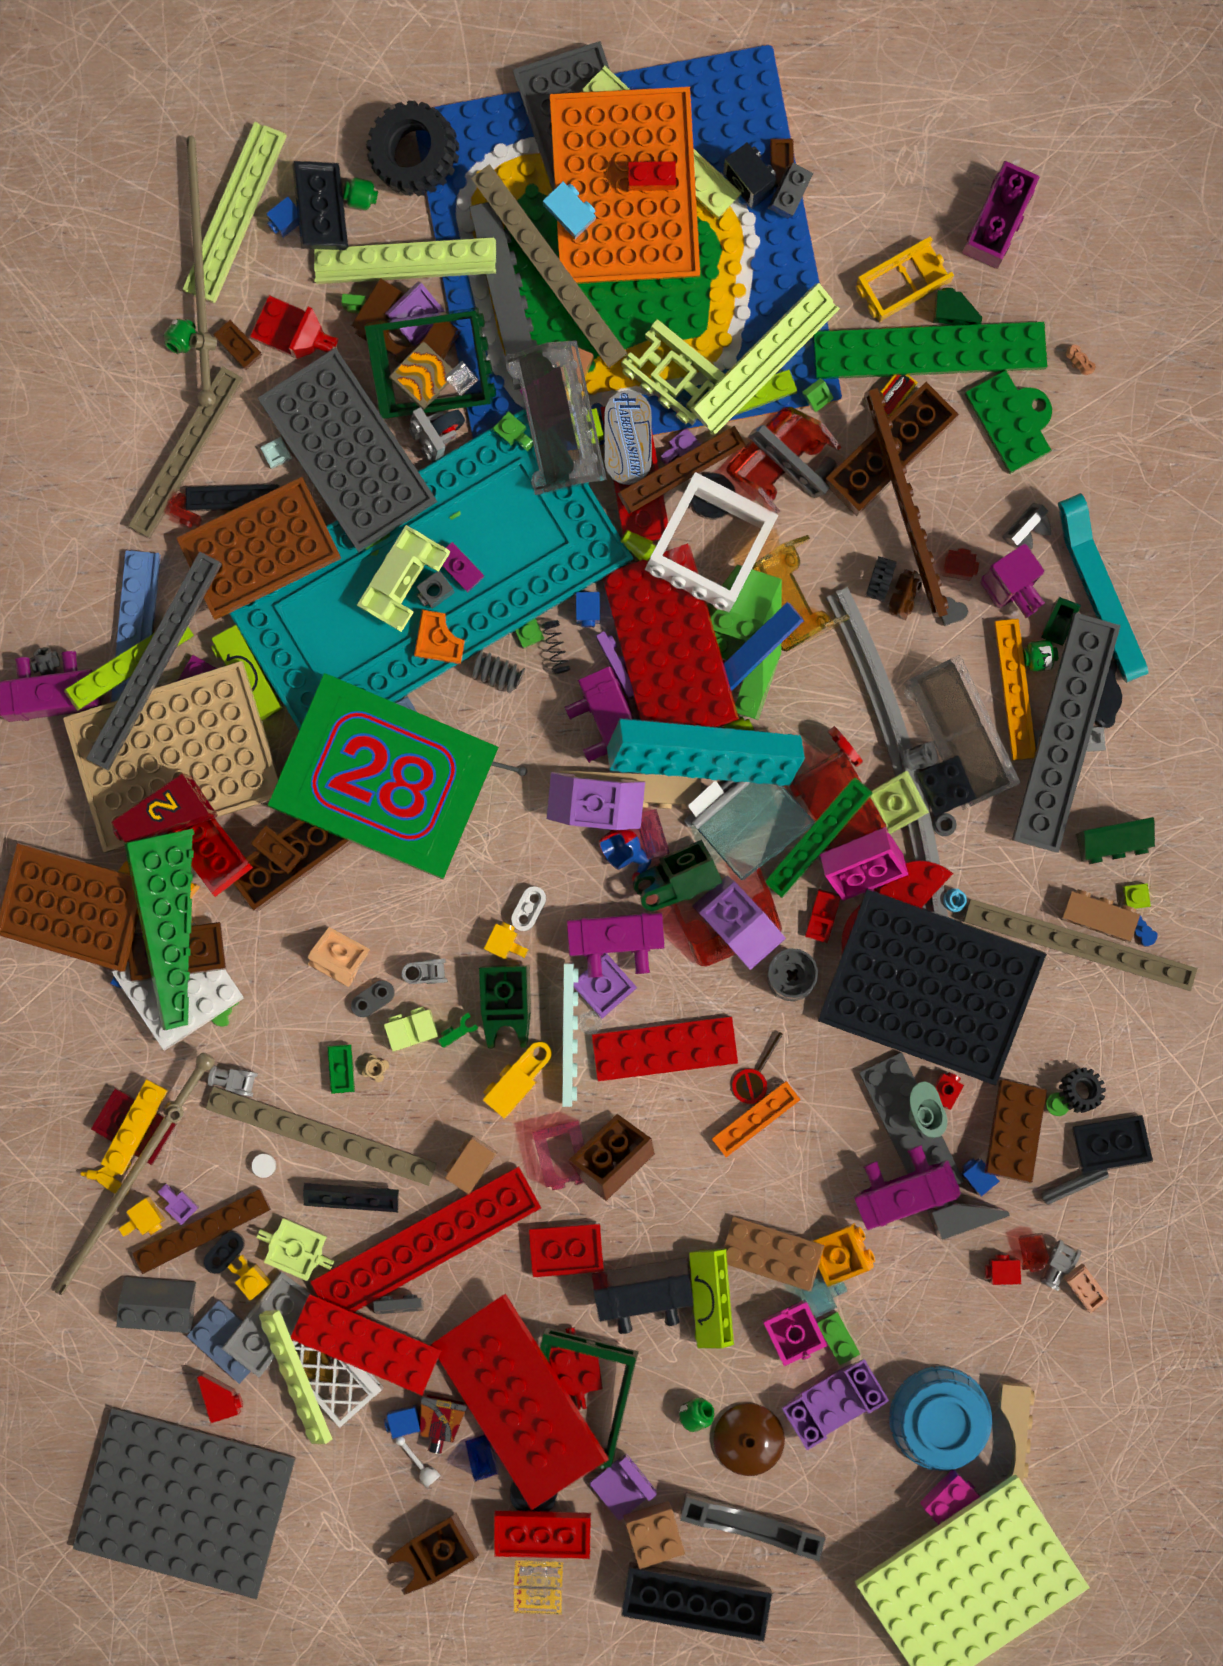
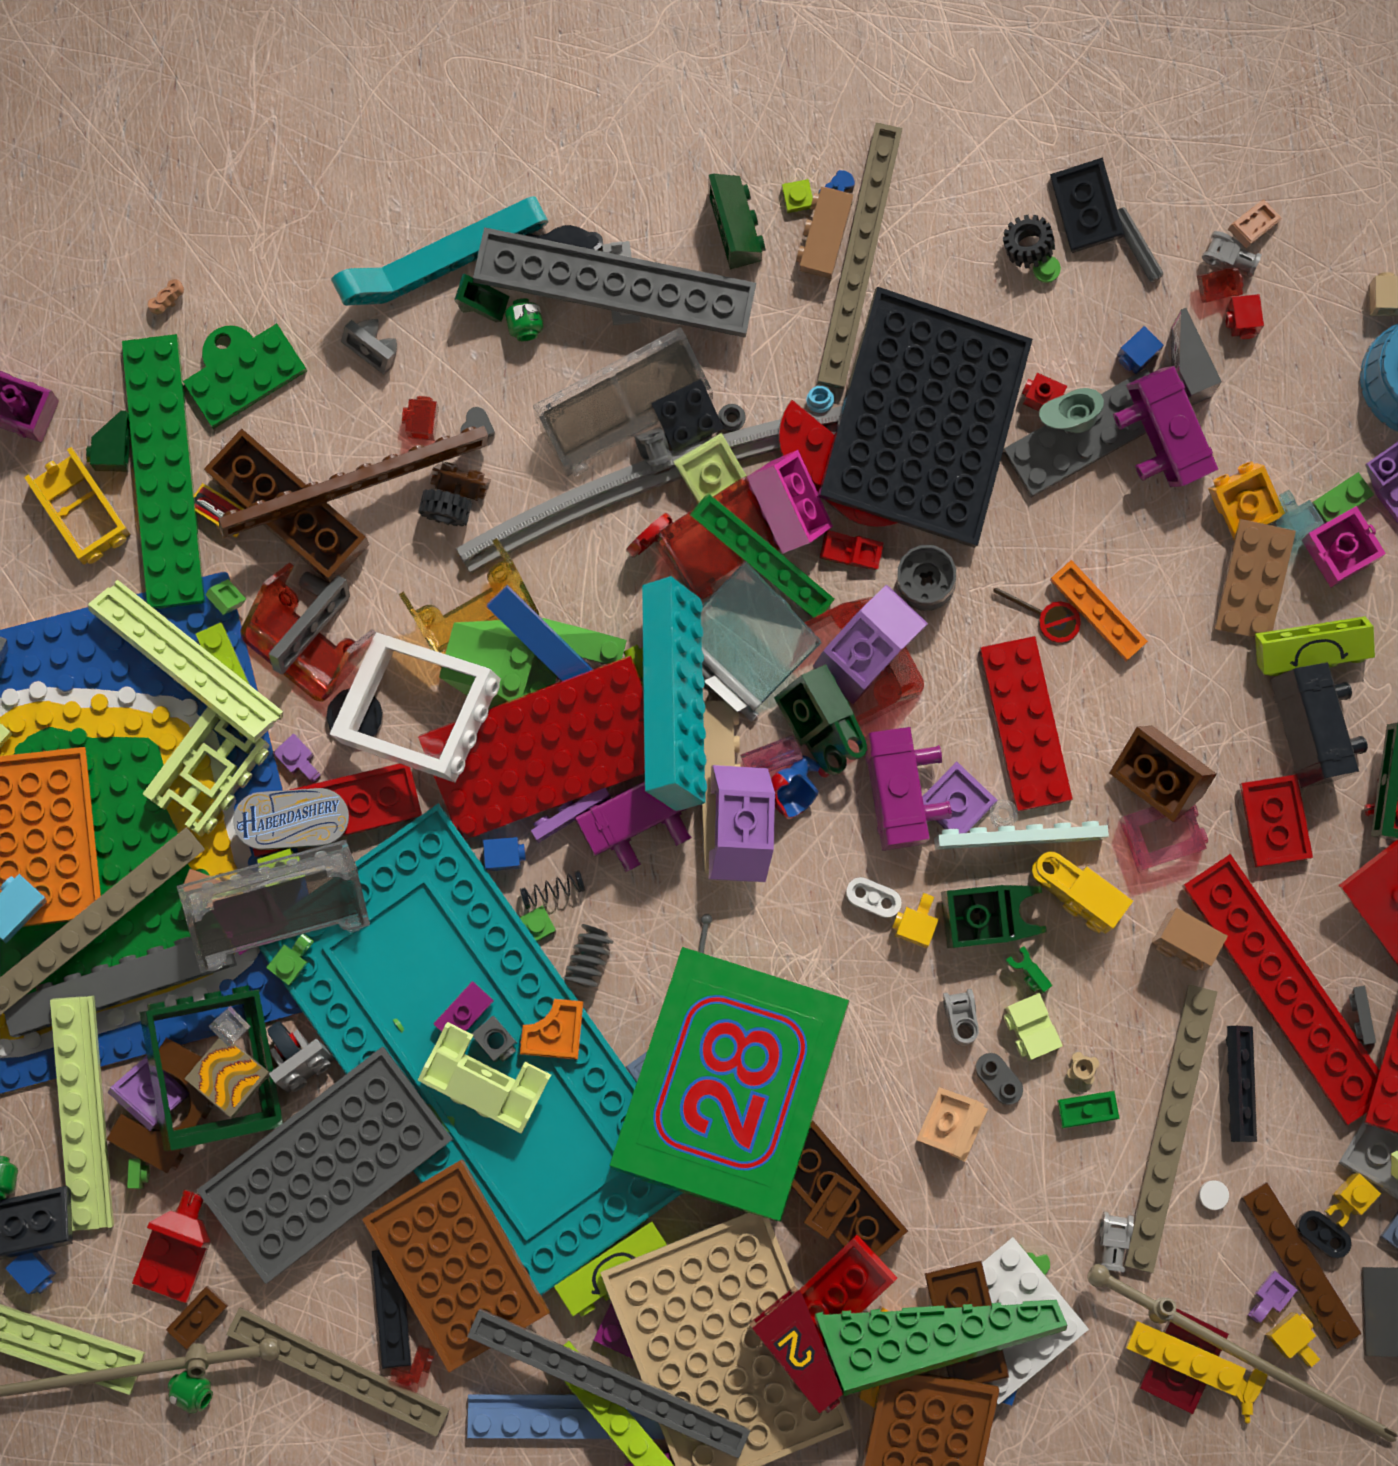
camera: 100 degrees left, 5 degrees down
(276, 453) = (331, 1257): light aqua tile -> none
(295, 1249) = (1310, 1146): yellowish green plate -> none
(638, 545) = (423, 796): lime cone -> none
(681, 469) = (327, 753): reddish brown plate -> none
(1013, 580) = (439, 346): magenta piece -> none
(1015, 689) = (565, 346): light orange plate -> none
(1015, 1131) = (1084, 312): reddish brown plate -> none

